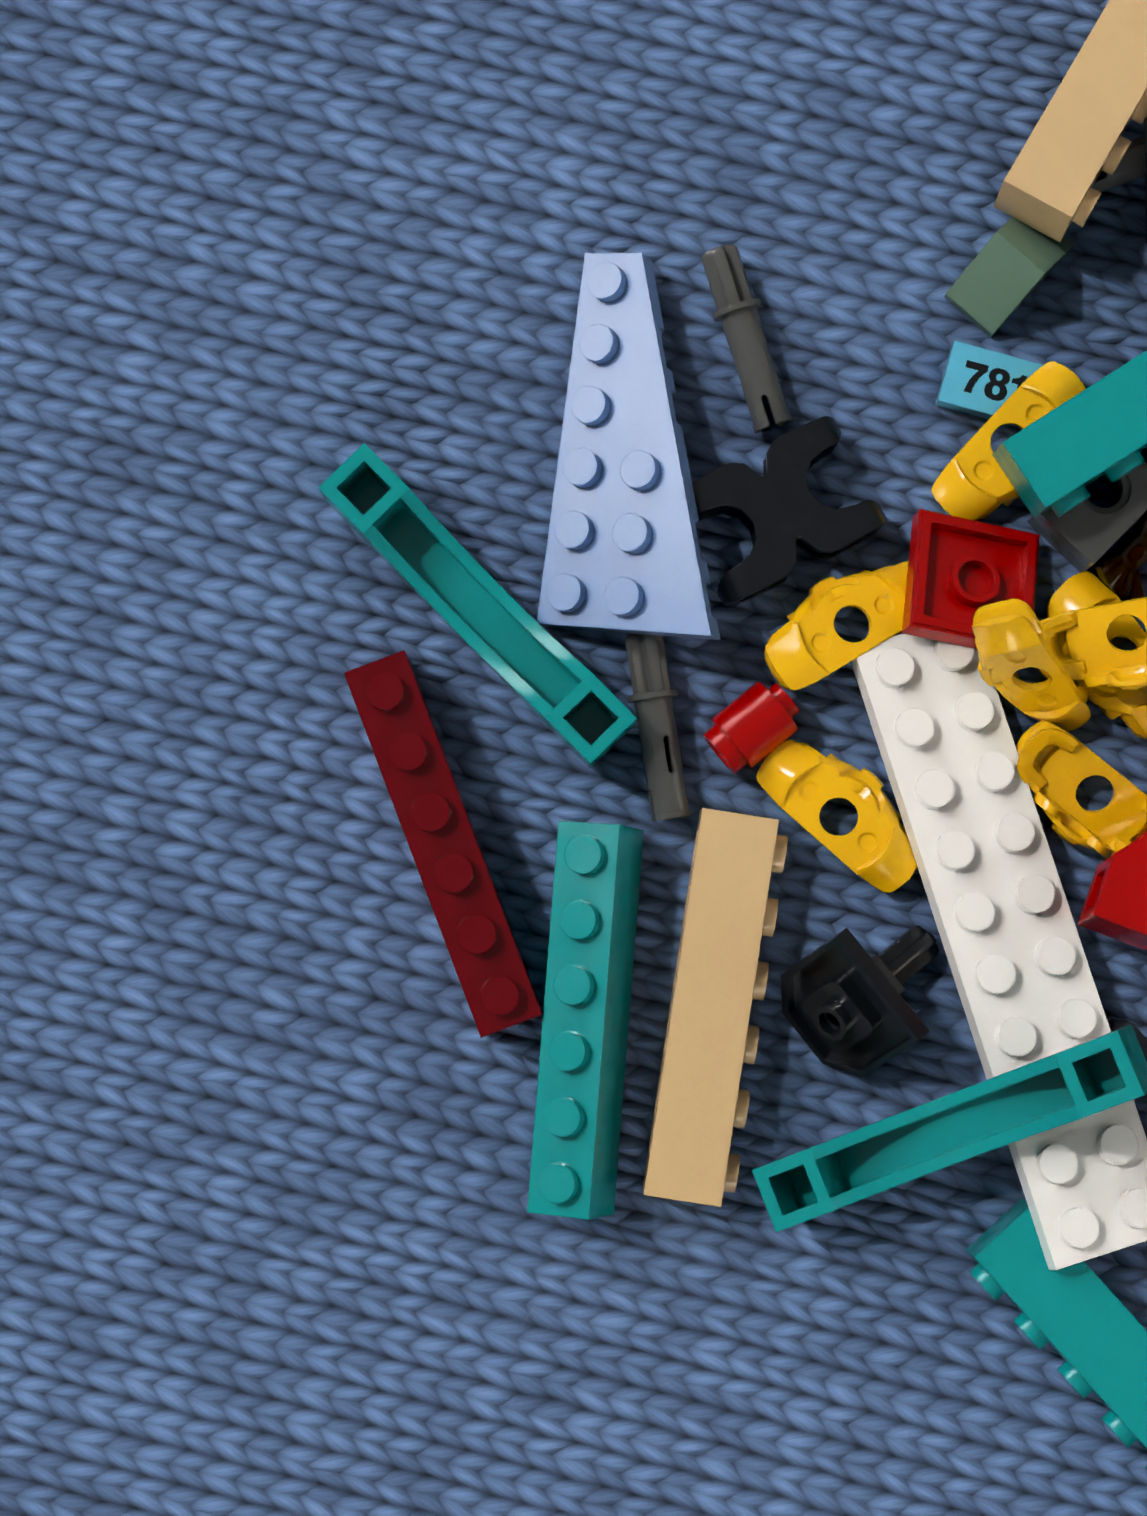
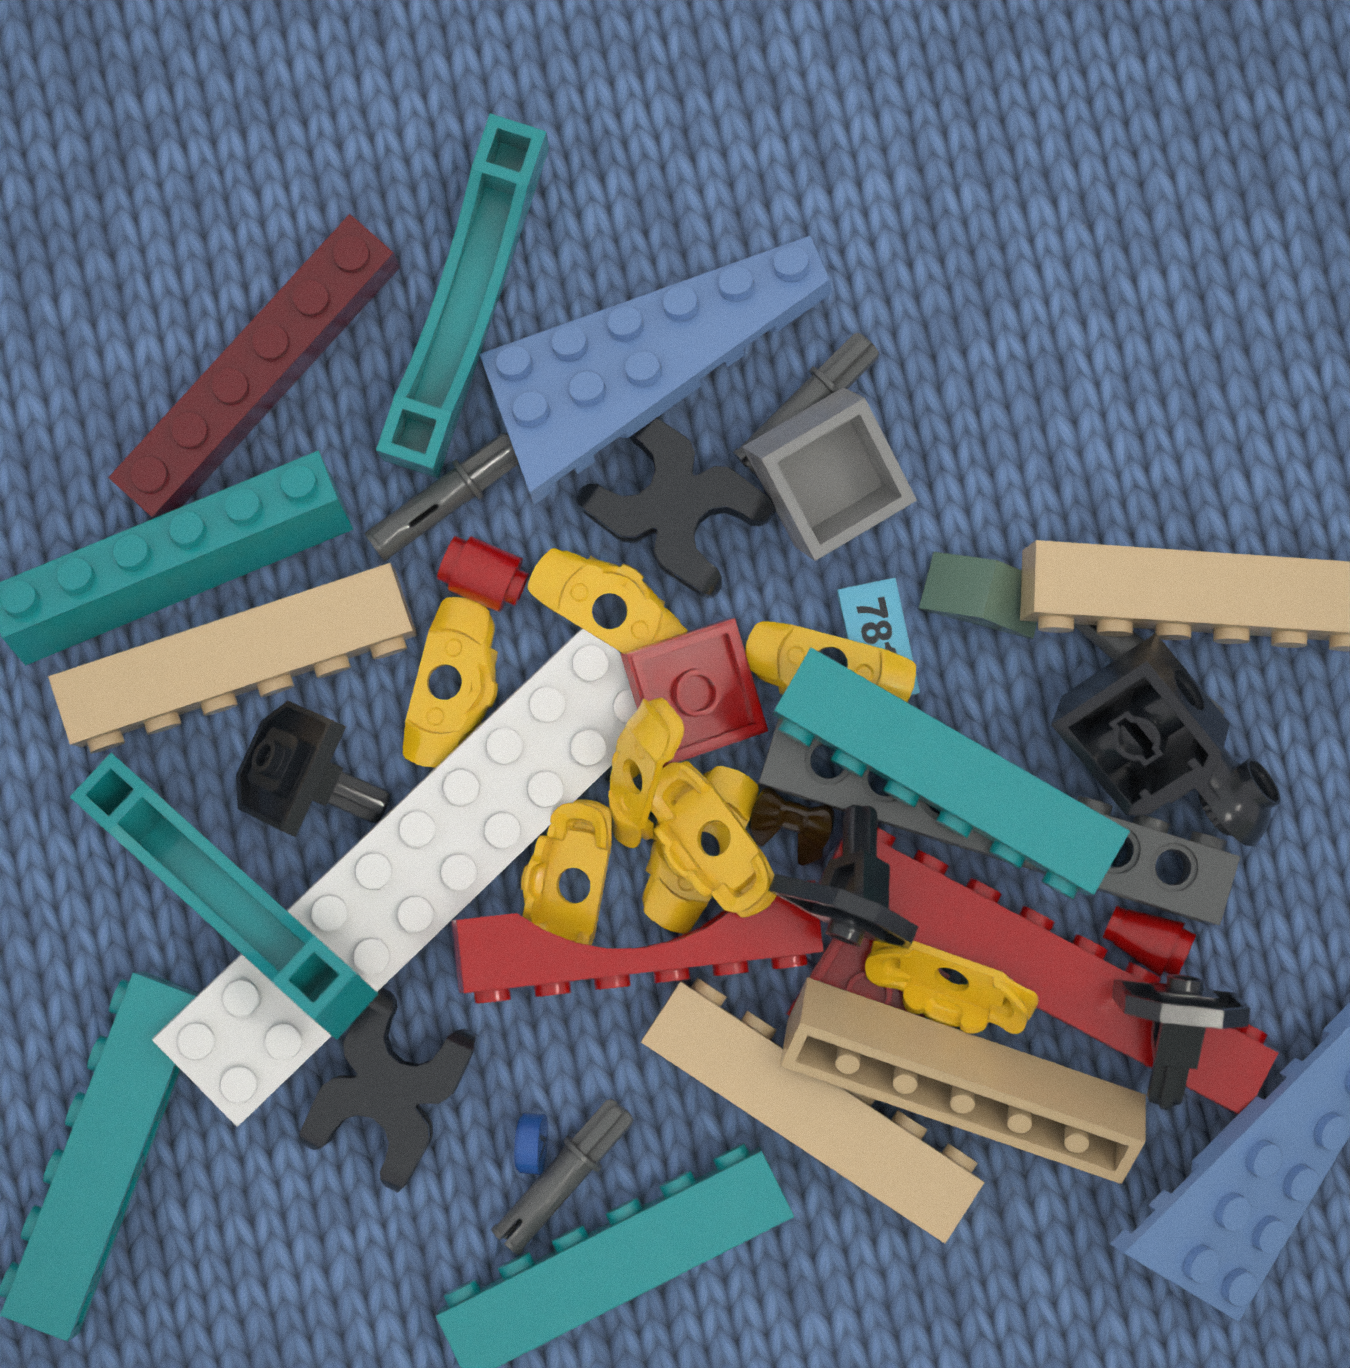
camera: 60 degrees right, 0 degrees up
(832, 345) = (829, 473): none -> light grey piece

